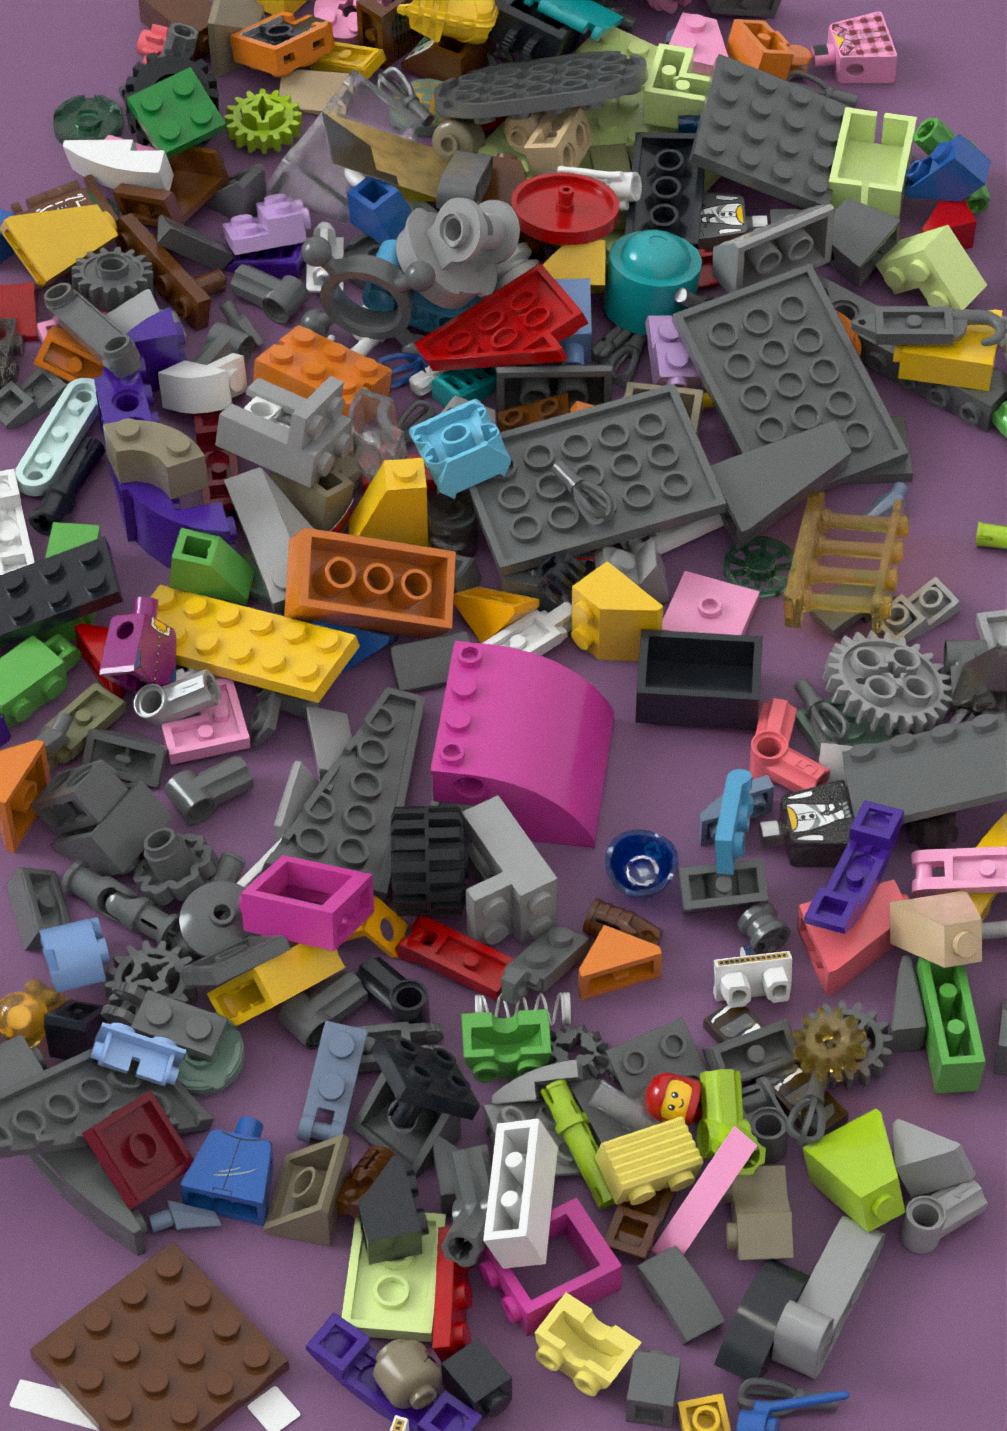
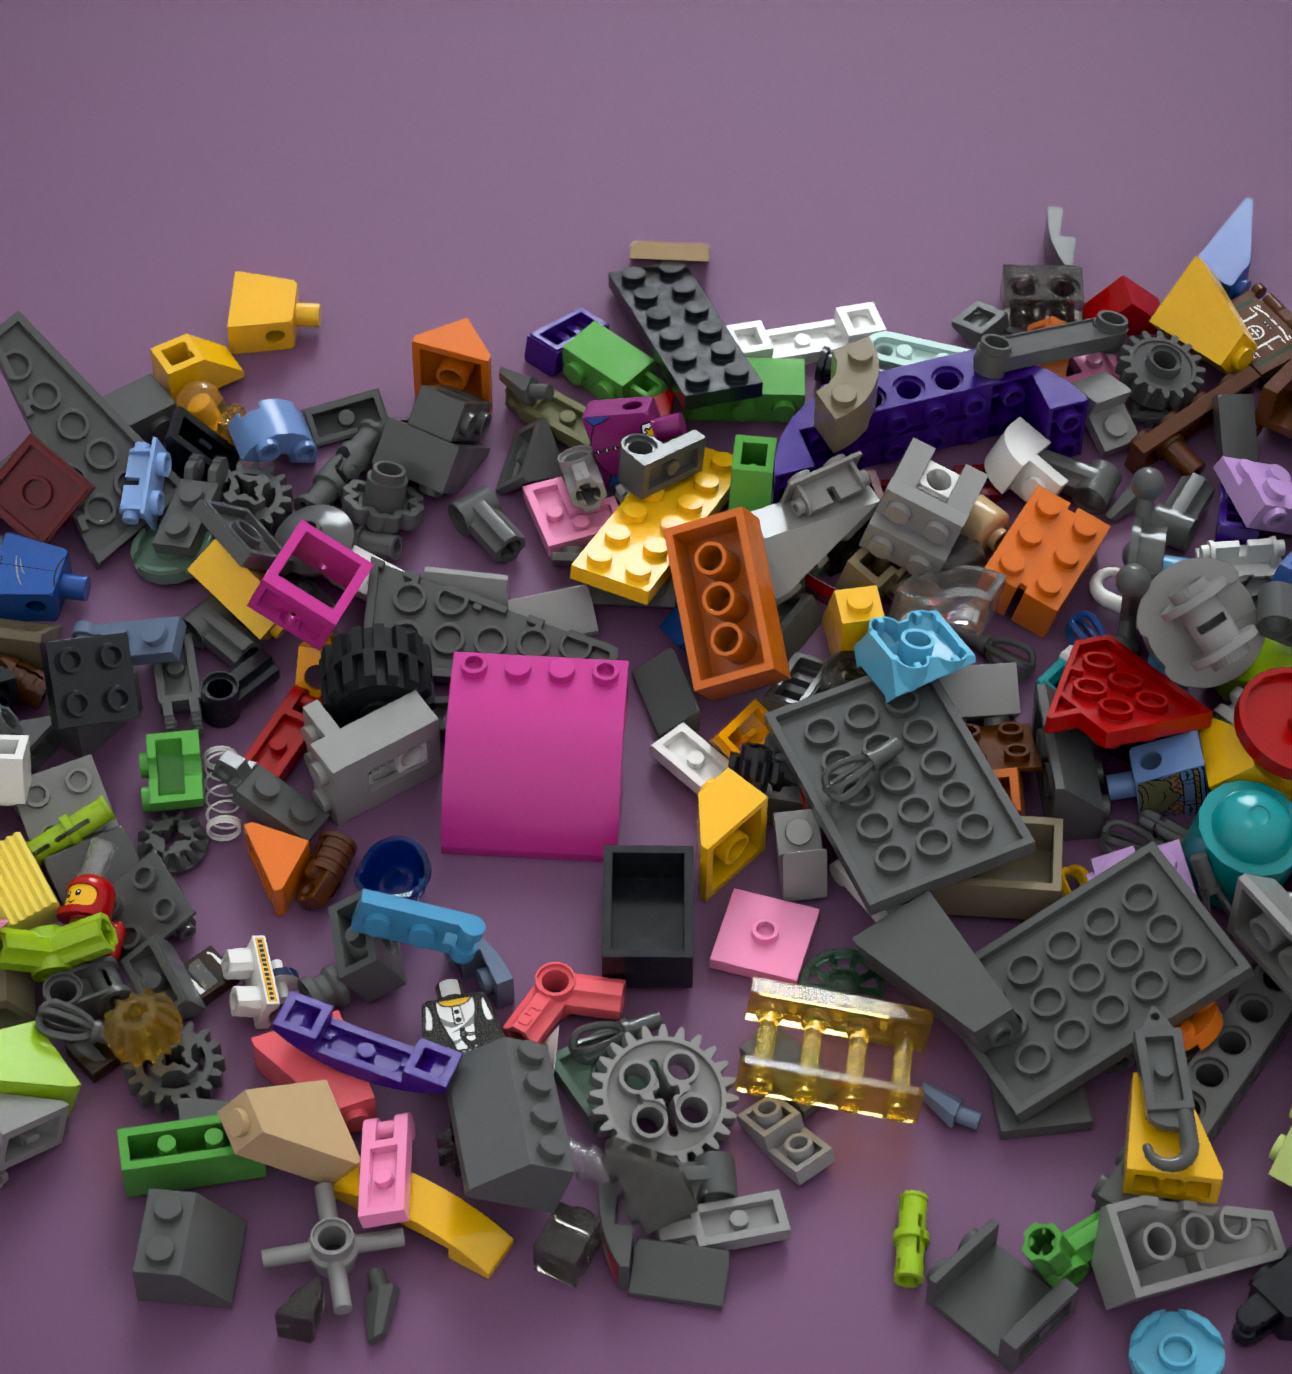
camera: 85 degrees right, 0 degrees up
(186, 628) = (652, 466): none -> dark grey plate
(244, 497) = (810, 489): none -> light grey hinge
(527, 1087) = (124, 807): light grey slope -> none

